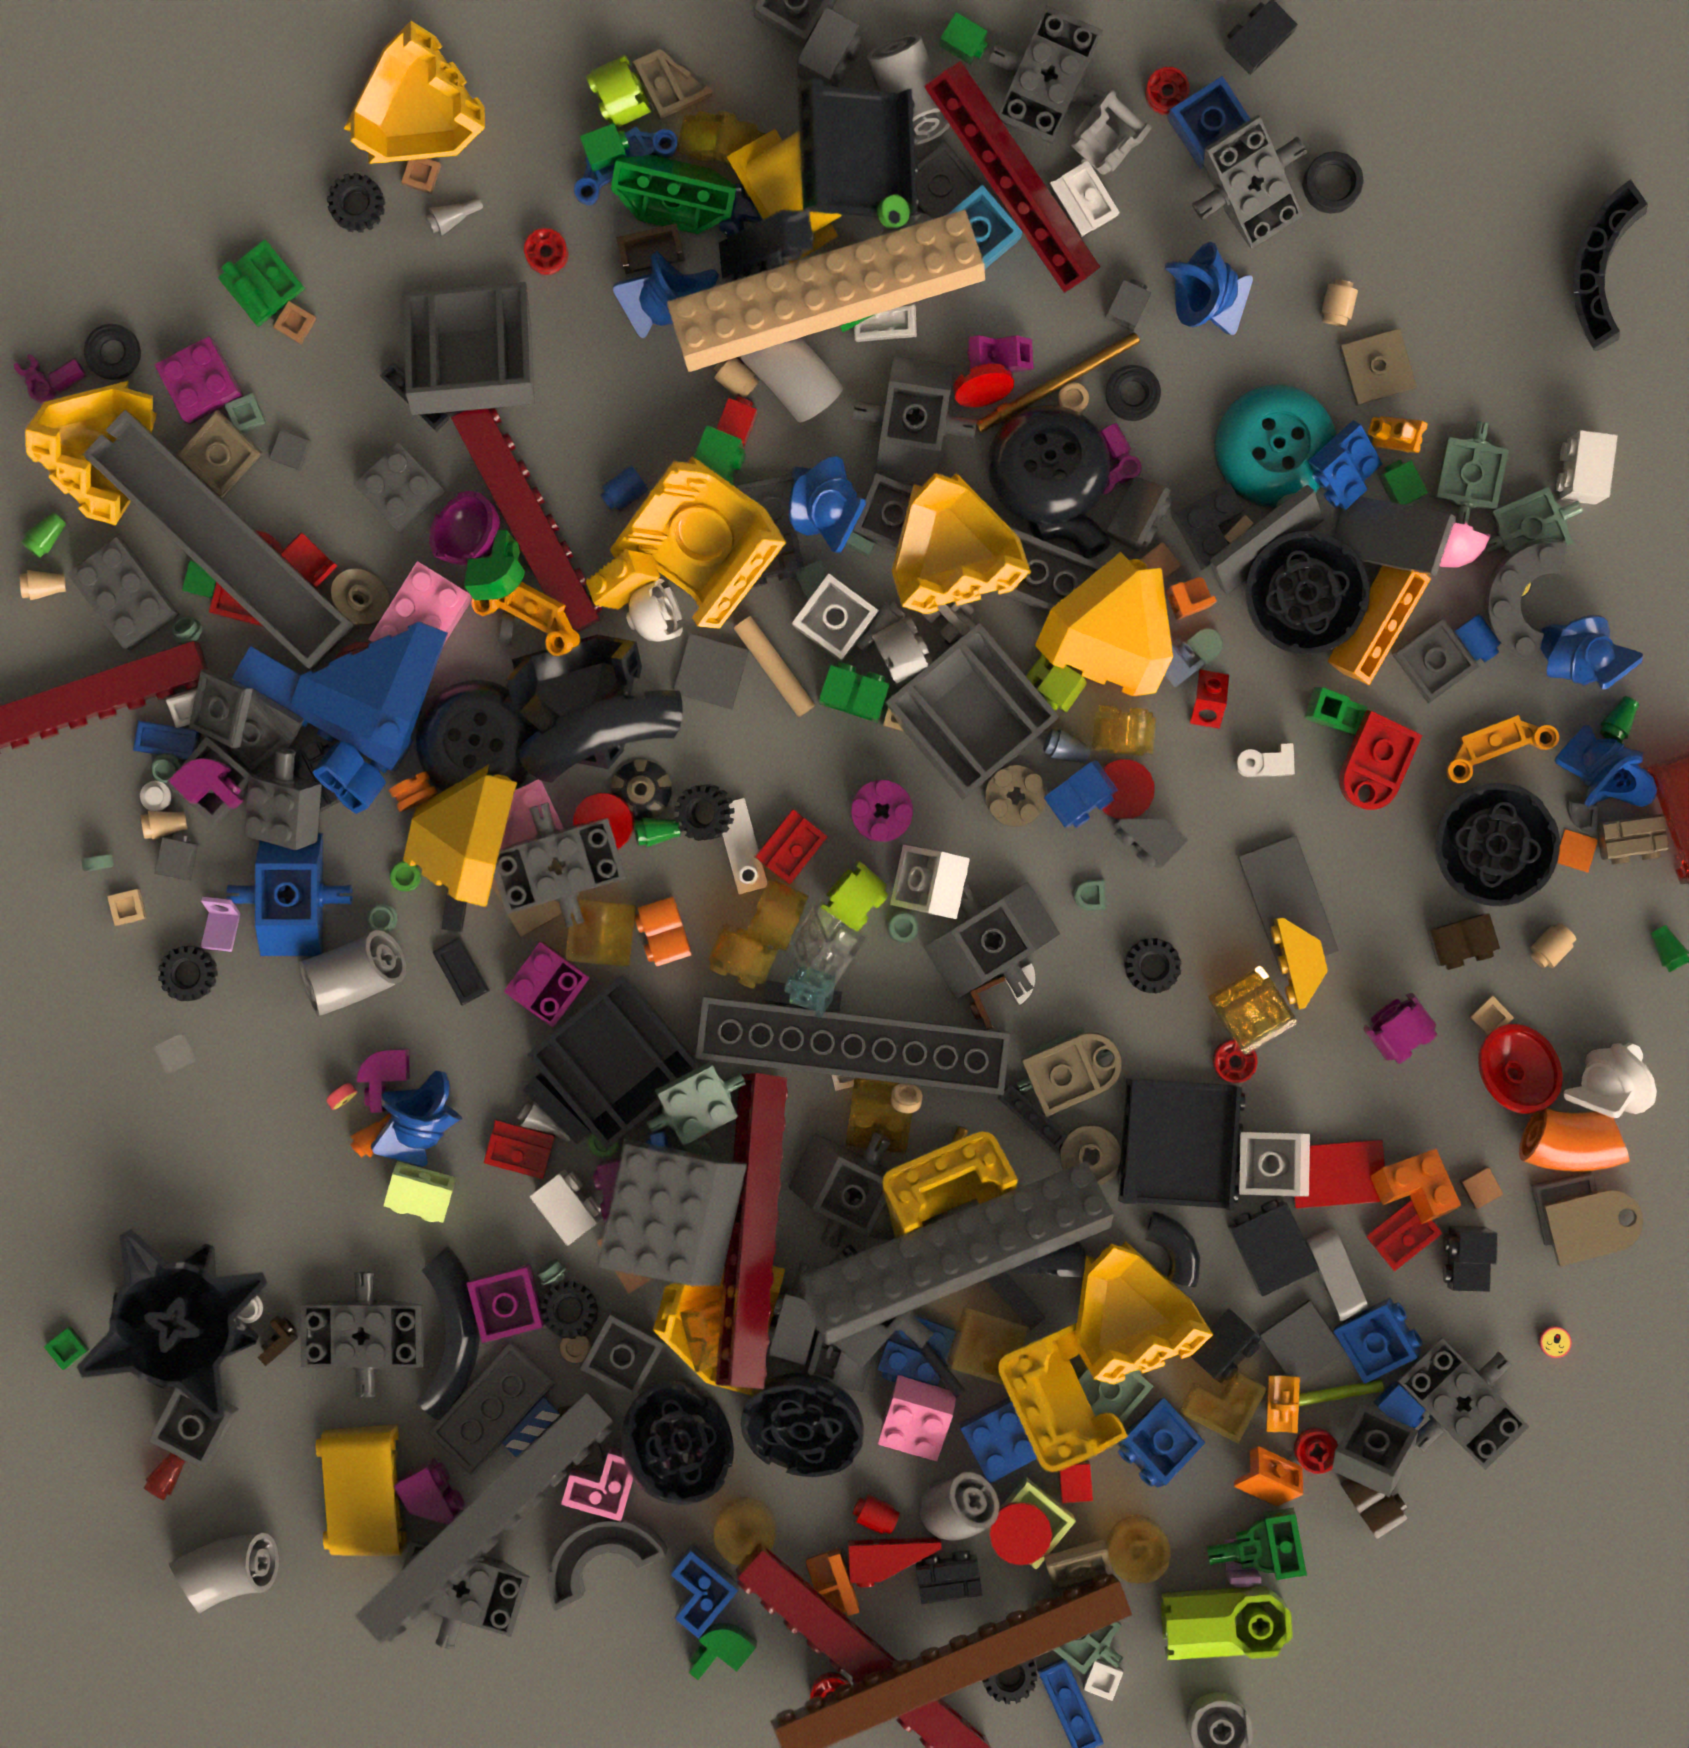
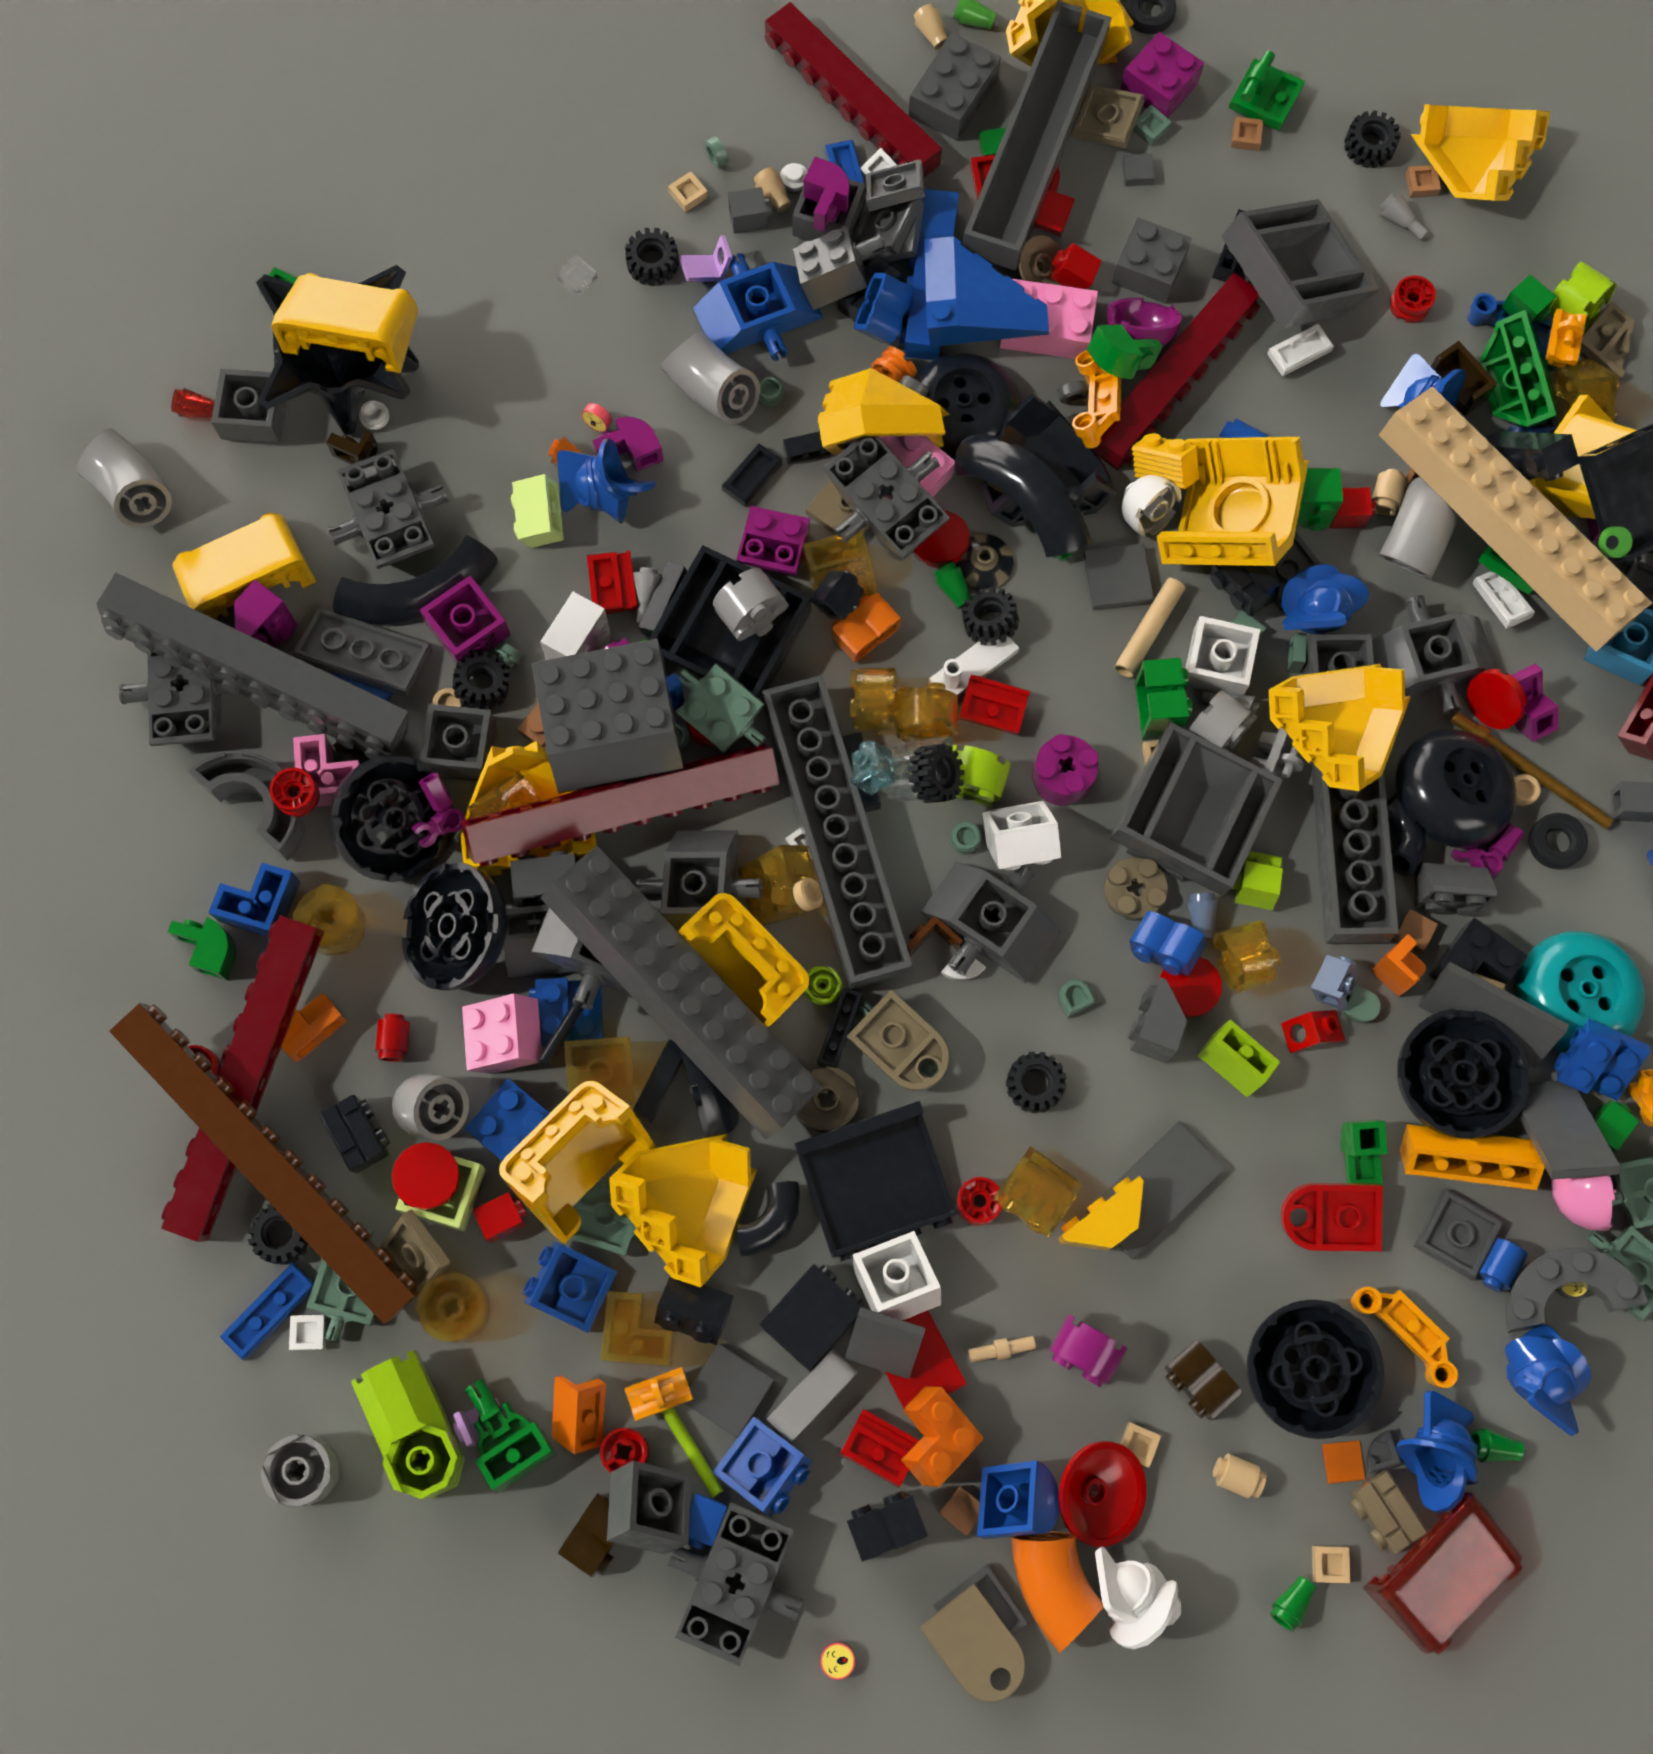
camera: 65 degrees right, 15 degrees down
(168, 1307) = (346, 318): none -> yellow windscreen
(186, 630) = (949, 146): sand green plate -> none
(378, 567) = (1075, 267): none -> red brick
(405, 877) = (813, 397): bright green tile -> none
(442, 788) = (915, 385): none -> dark grey tile
(553, 387) = (1300, 350): none -> white plate
(614, 1534) = (282, 796): none -> red wheel
(616, 1040) = (749, 604): none -> light grey brick
(629, 948) = (838, 594): none -> black brick
(661, 137) = (1565, 338): none -> light orange hips
(694, 1392) = (447, 817): none -> magenta bar
(856, 929) = (933, 760): none -> black tyre
(881, 1558) = (348, 1056): red slope -> none
(987, 1105) = (832, 981): none -> lime plate
(1113, 627) = (1339, 903): yellow panel -> none
(1209, 780) = (1238, 1058): none -> lime brick
(1256, 764) = (1280, 1110): white leg -> none
(1324, 1198) = (885, 1343): none -> dark grey tile
(1365, 1097) = (1001, 1349): none -> tan bar
(1498, 1144) = (1017, 1500): none -> blue brick
(1652, 902) = (1331, 1564): none -> tan tile

